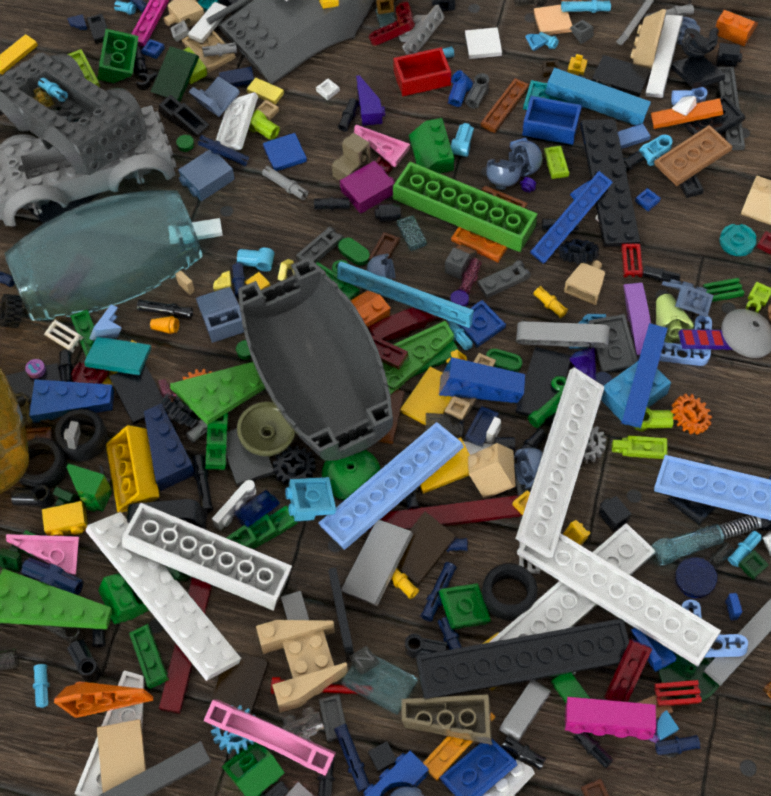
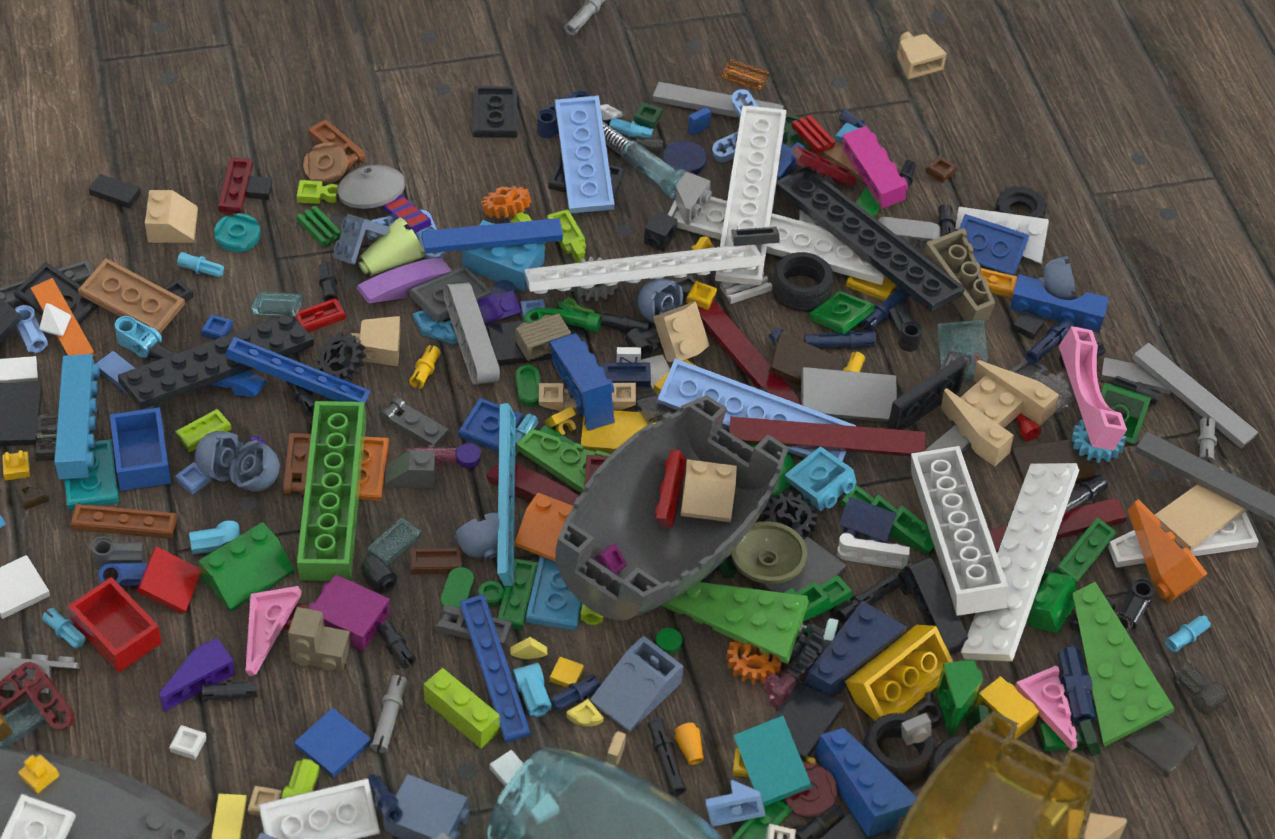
camera: 125 degrees left, 10 degrees down
(187, 440) = (830, 632): none -> light aqua tile
(196, 689) = (1086, 492): none -> black pin
(263, 215) = (461, 708): none -> lime brick
(282, 242) = (494, 668): none -> blue tile
(310, 325) = (611, 559): none -> magenta tile
(332, 408) = (708, 490): none -> tan slope
(341, 520) = (829, 436): none -> dark red tile
(348, 387) = (670, 489): none -> red plate
(442, 105) = (169, 580): none -> red tile
(537, 377) = (535, 336): none -> dark tan brick
(558, 560) = (755, 236): none -> black tile
(634, 543) = (691, 195): none -> light grey slope
(651, 236) = (277, 303): none -> clear light blue tile
(712, 206) = (199, 265): none -> medium azure axle

